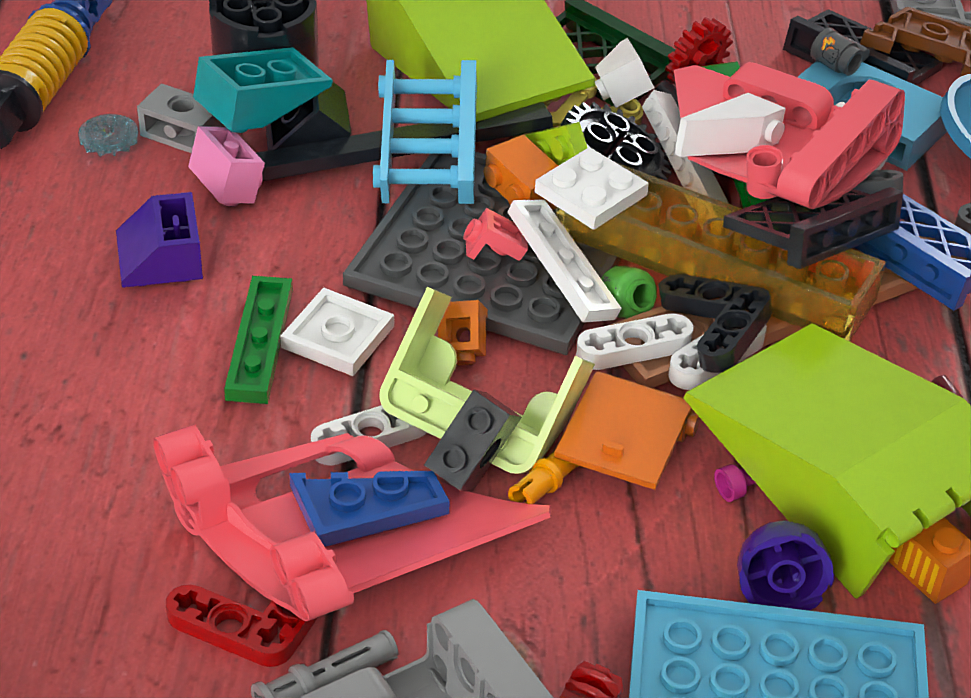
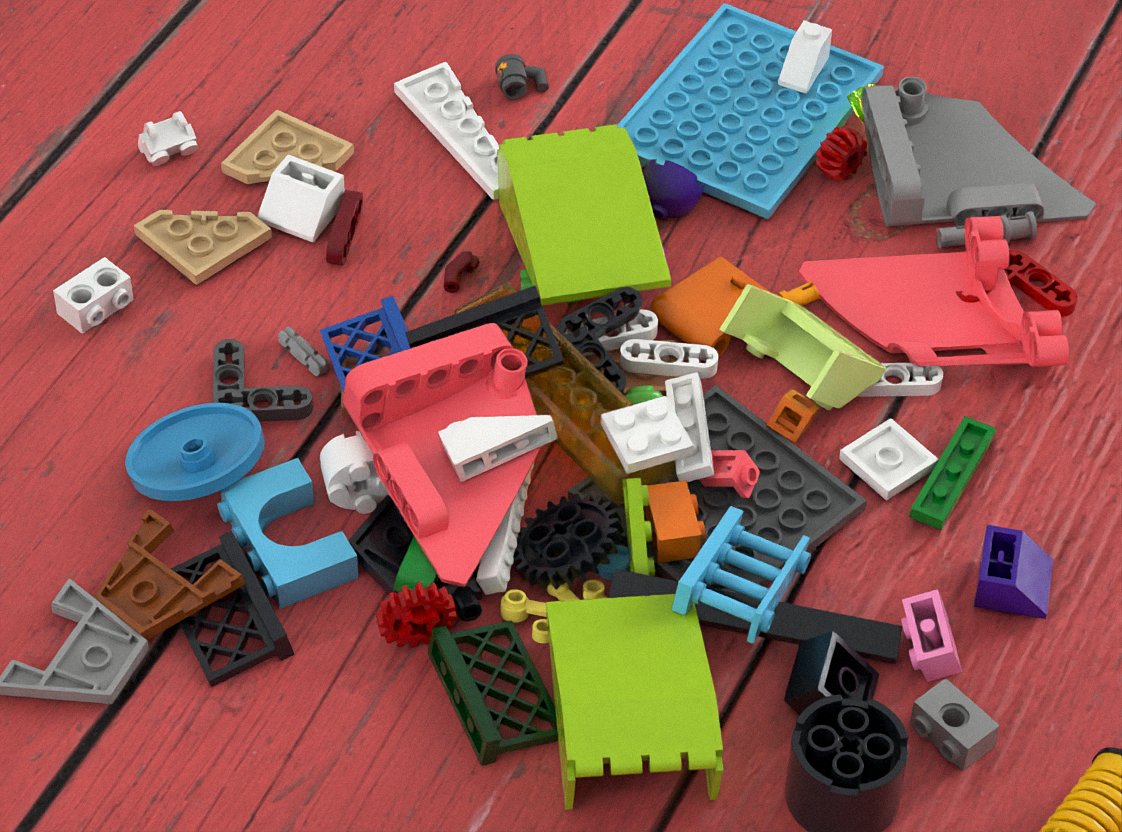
camera: 155 degrees left, 5 degrees up
(96, 131) = (1023, 727): clear light blue gear -> none
(256, 86) = (882, 664): teal slope -> none
(359, 507) = (924, 309): blue wing -> none
(472, 441) = (836, 306): black brick -> none
(622, 75) = (508, 607): white slope -> none
(838, 52) = (293, 556): dark grey piece -> none

